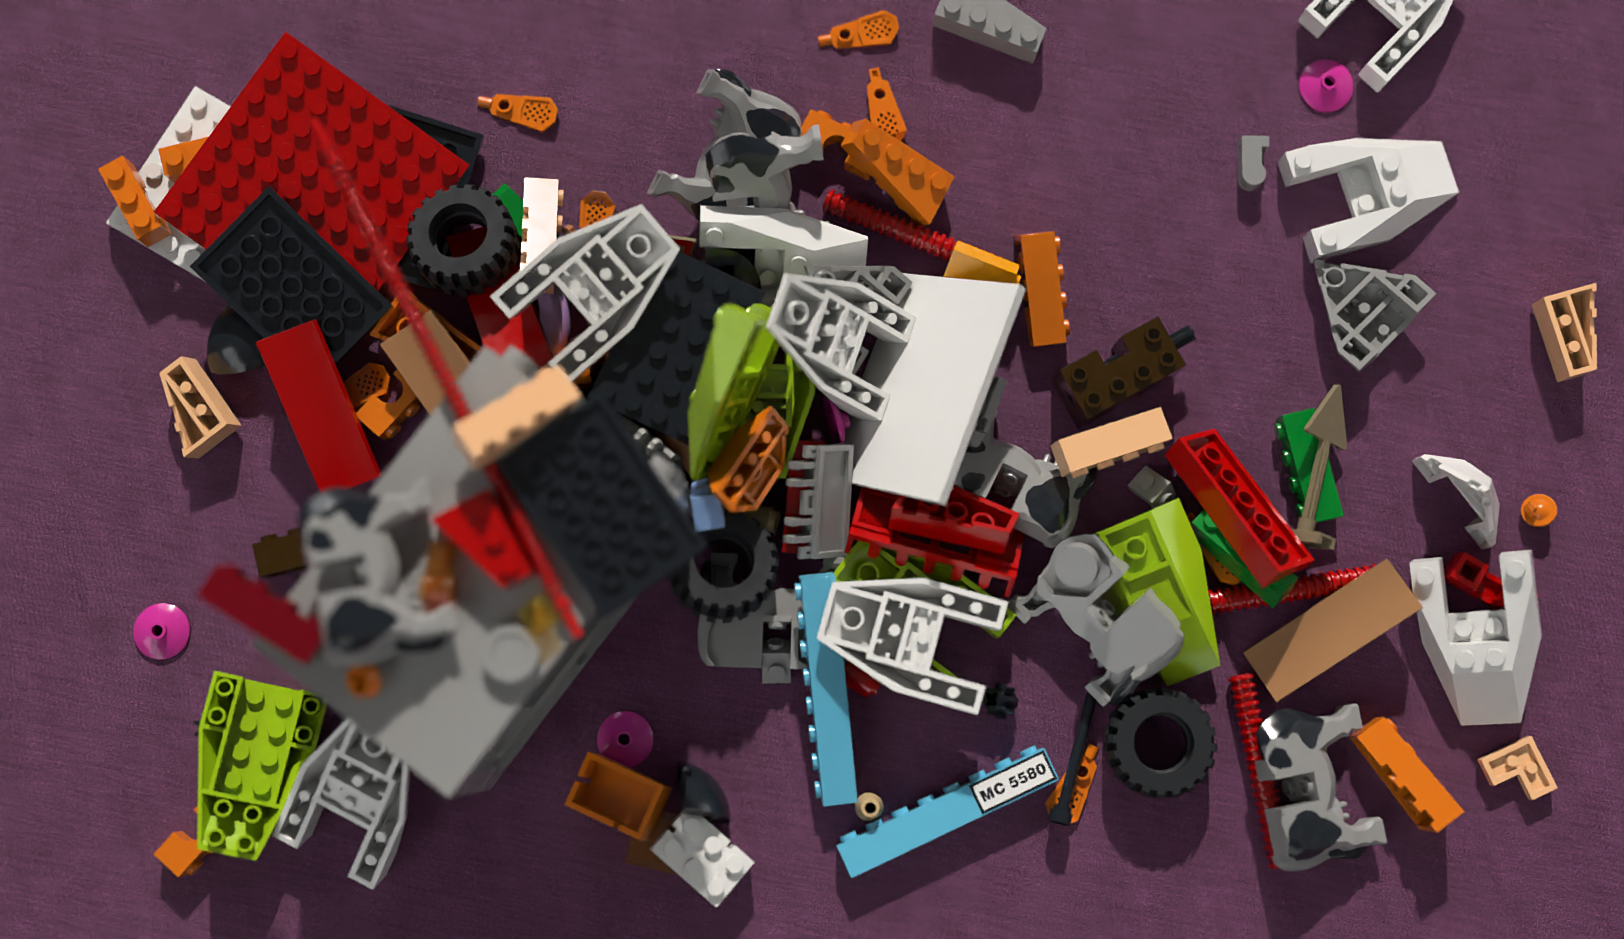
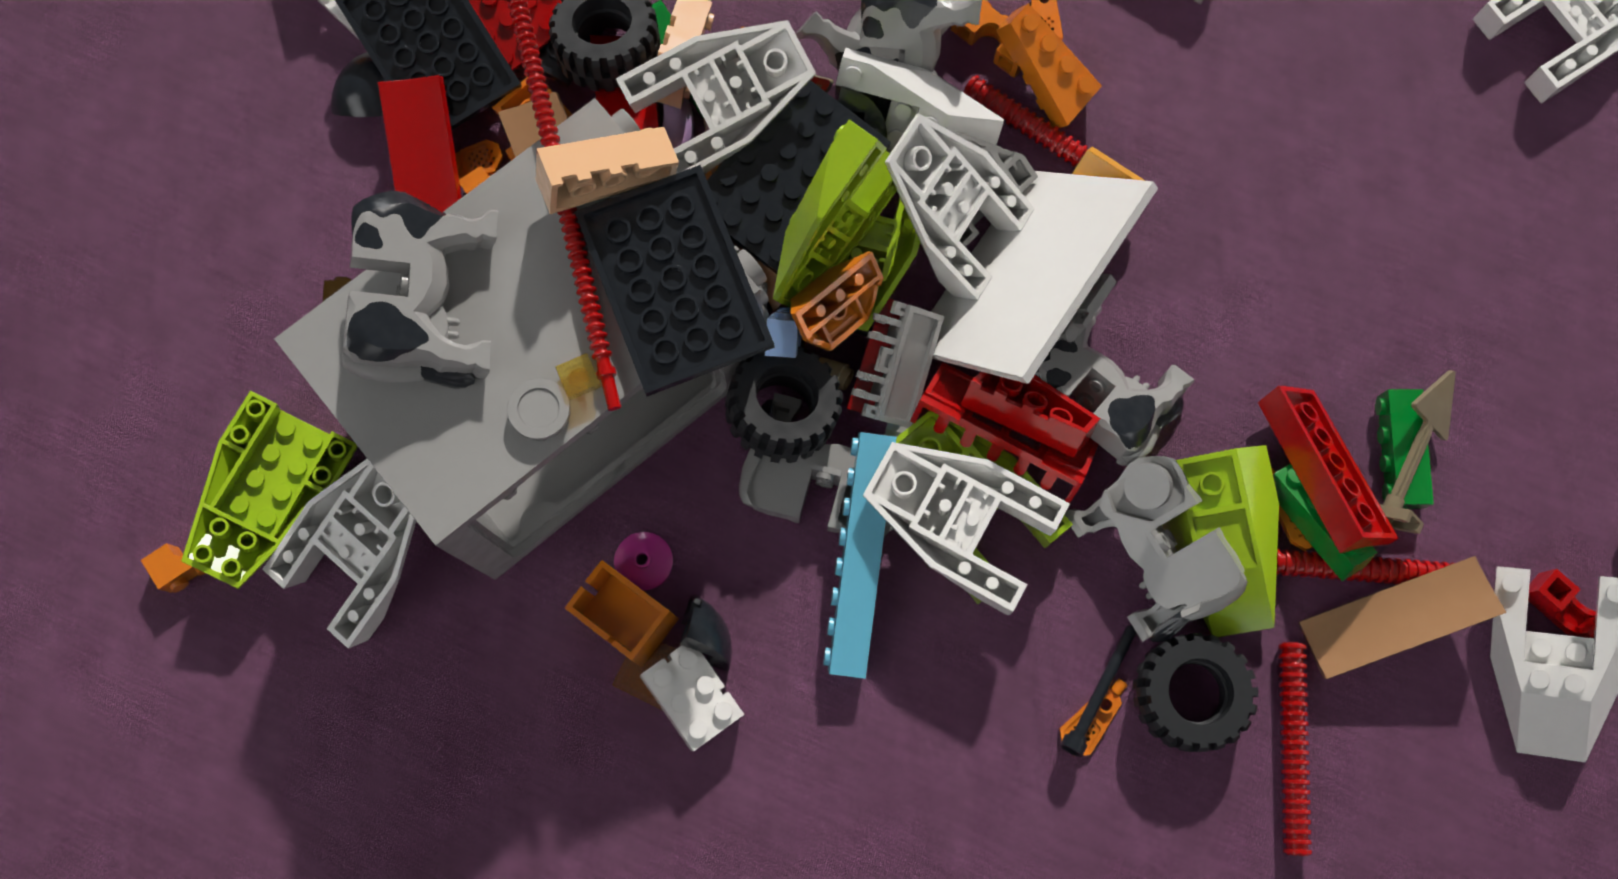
camera: 15 degrees right, 5 degrees down
(174, 635) = (225, 353): dark pink dish -> none
(197, 406) = (308, 141): light nougat wedge -> none
(263, 612) = (290, 302): dark red wedge -> none
(364, 681) = (378, 400): orange hat -> none
(438, 582) = (485, 317): clear orange piece -> none
(487, 538) = (545, 282): red wedge -> none
(776, 661) = (815, 517): light grey bracket -> none
(835, 420) = (930, 291): dark pink dish -> none
(860, 681) = (898, 555): red brick -> none
(863, 800) = (869, 694): tan cone -> none
(946, 812) = (956, 711): medium azure brick -> none
(1000, 701) = (1036, 610): black gear -> none
(1043, 289) = (1167, 211): orange wedge -> none
(1111, 443) = (1208, 373): light nougat wedge -> none
(1141, 363) = (1252, 305): dark brown piece -> none
(1152, 487) = (1237, 431): light grey bracket -> none
(1249, 161) = (1400, 137): light grey leg -> none
(1314, 829) = (1341, 815): light grey animal -> none
(1317, 93) = (1484, 95): dark pink dish -> none
(1368, 308) = (1498, 303): light grey wedge -> none
(1384, 185) = (1529, 190): white wedge -> none
(1406, 775) = (1451, 791): orange wedge -> none
(1475, 488) = (1578, 506): white wedge -> none
(1519, 760) = (1577, 804): light nougat plate -> none

